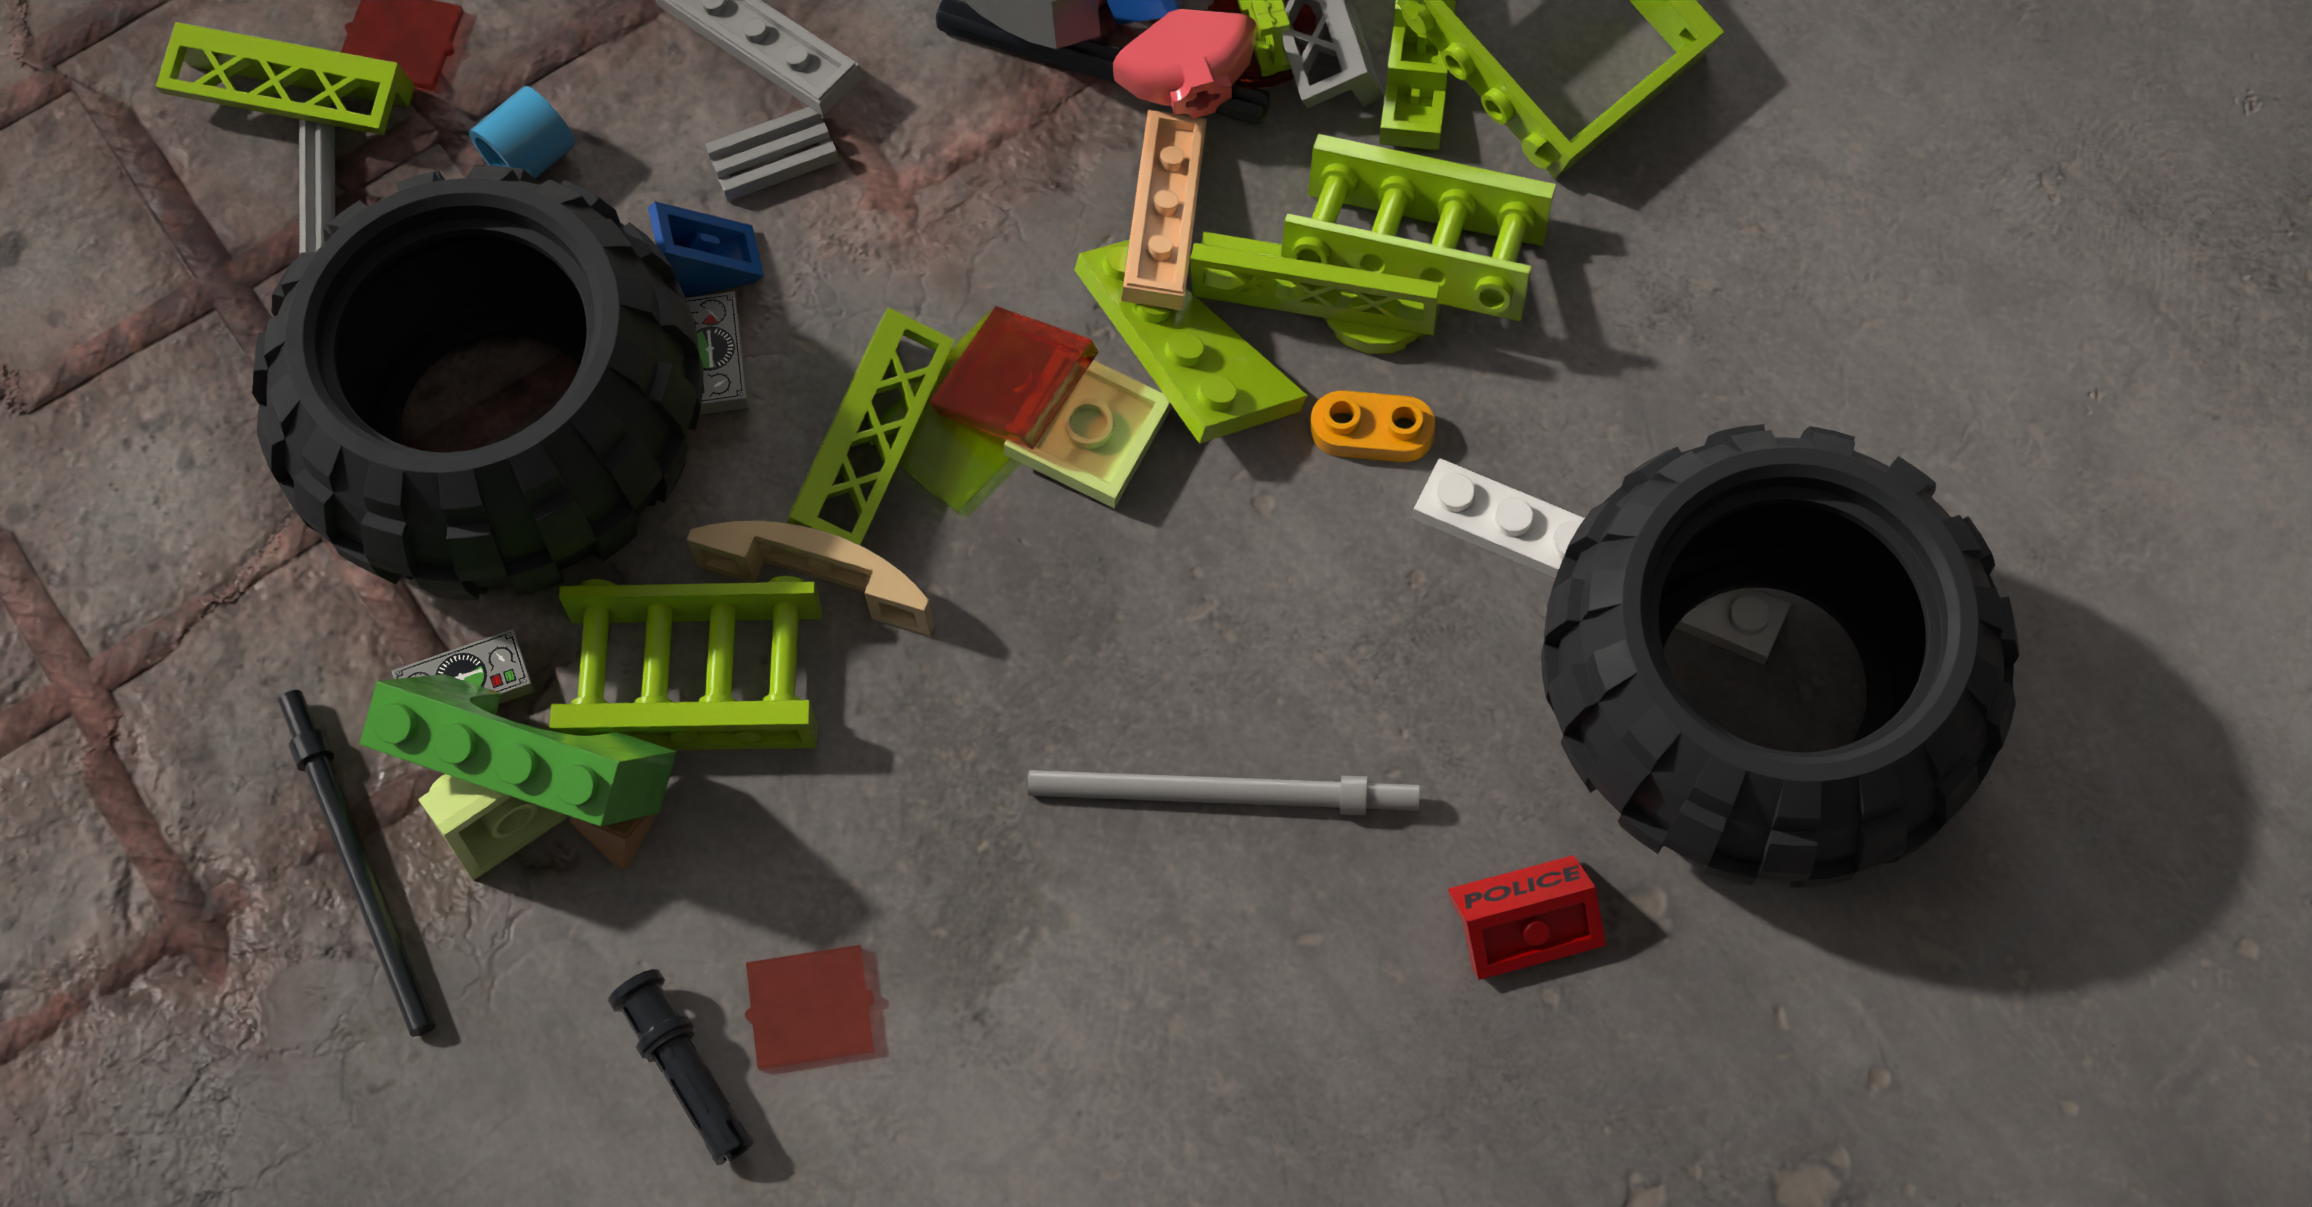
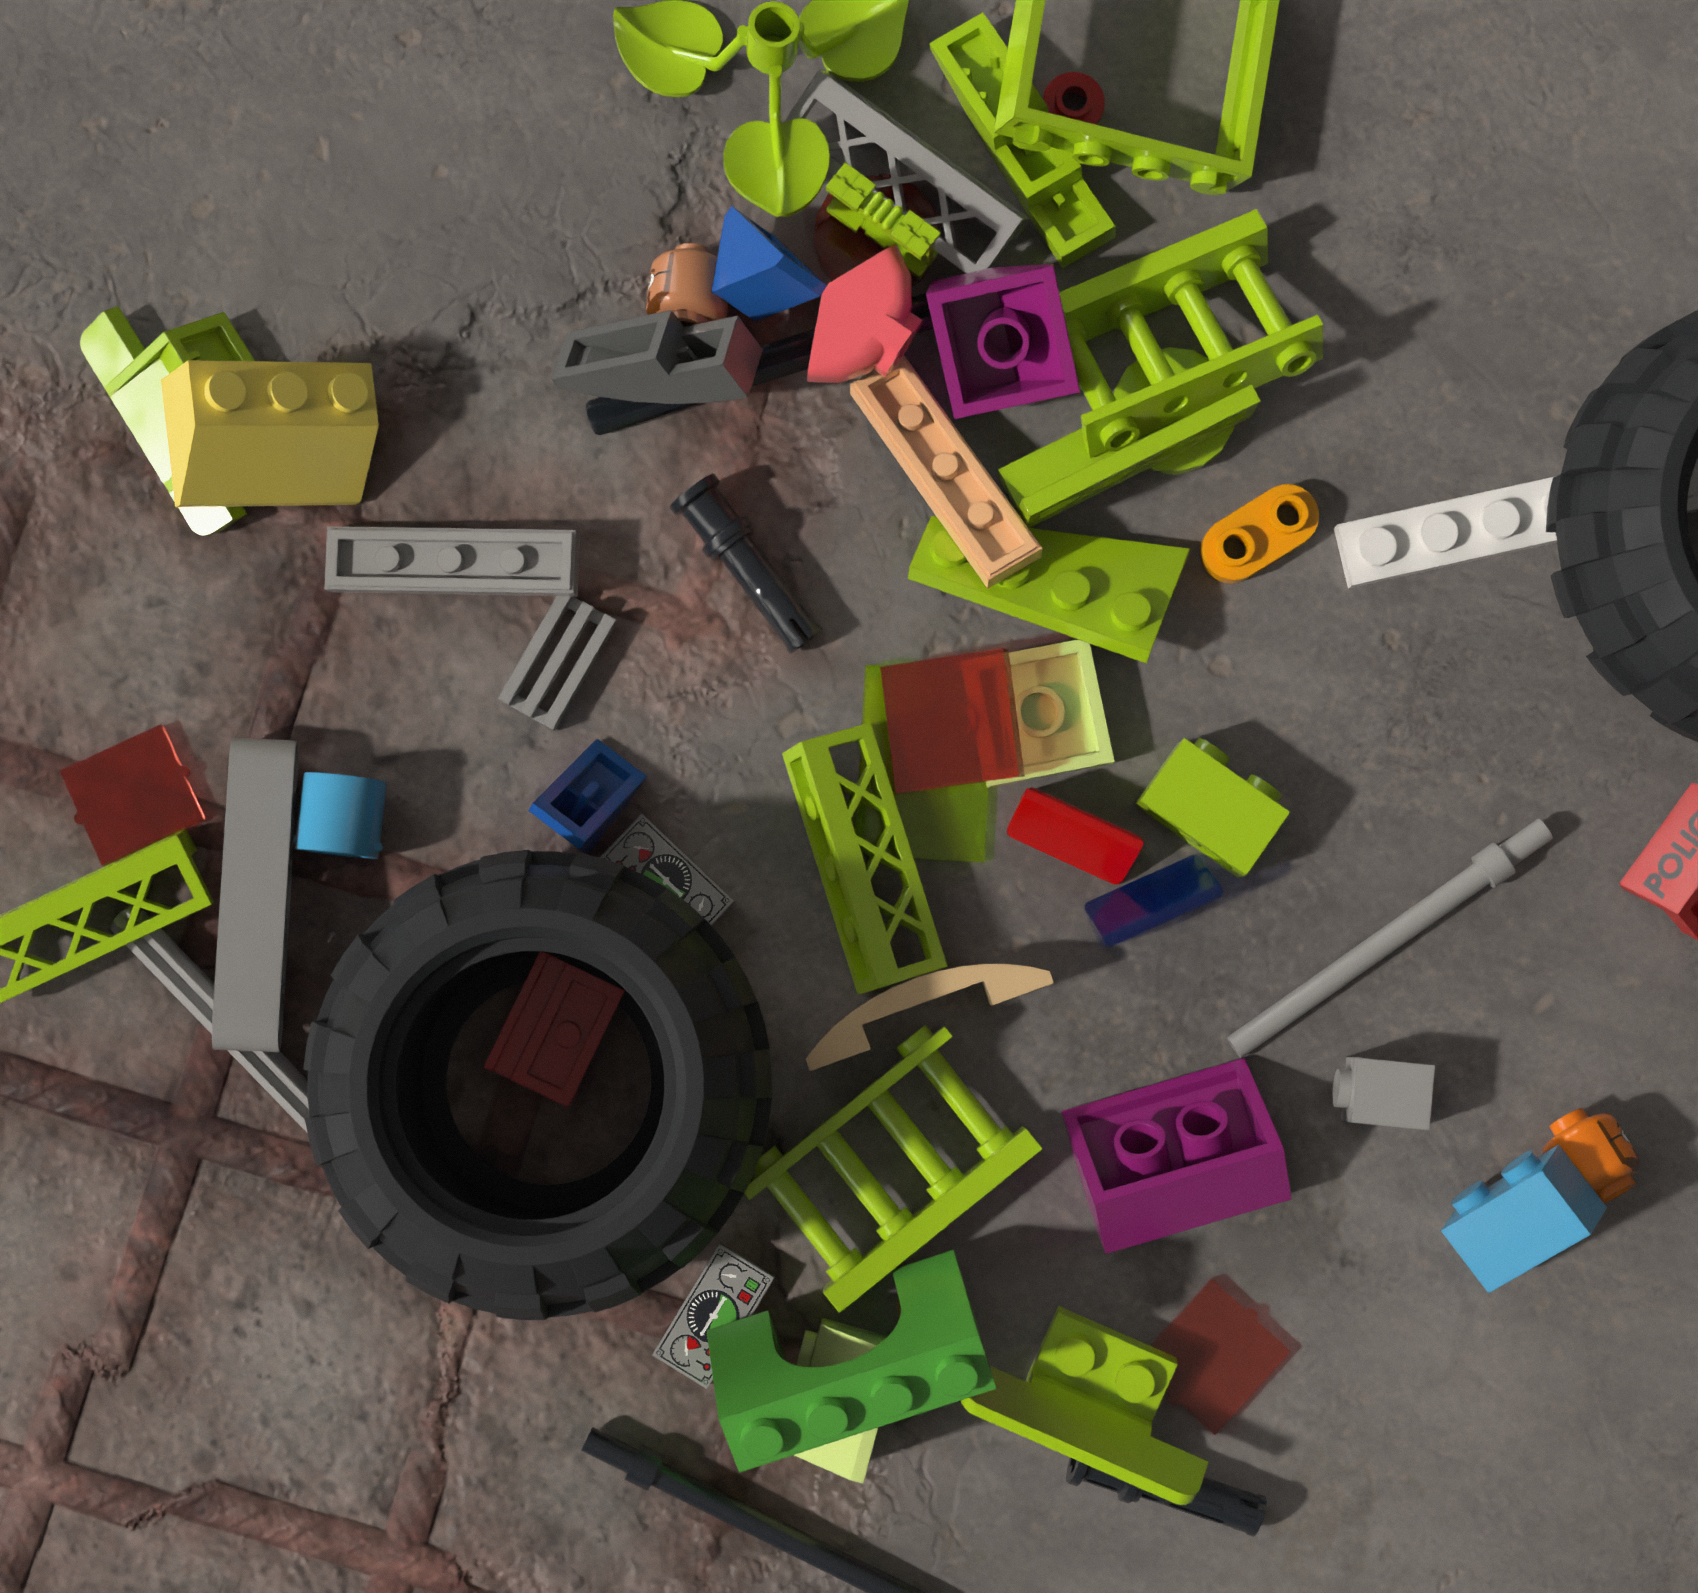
camera: 45 degrees left, 20 degrees up
(416, 138) = (255, 895): none -> light grey beam
(524, 379) = (554, 1028): none -> red plate
(683, 952) = (1096, 1403): none -> lime plate
(908, 822) = (1177, 1155): none -> magenta slope
(966, 155) = (729, 539): none -> black pin
(1040, 534) = (1074, 836): none -> red slope
(1056, 630) = (1152, 900): none -> clear blue slope
(1116, 896) = (1384, 1093): none -> light grey brick
(1140, 1061) = (1522, 1217): none -> dark azure brick
(1163, 585) = (1213, 806): none -> lime brick
(1241, 1072) = (1597, 1150): none -> orange head
(1274, 133) = (1002, 338): none -> magenta slope
(1494, 26) = (1080, 84): none -> red plate

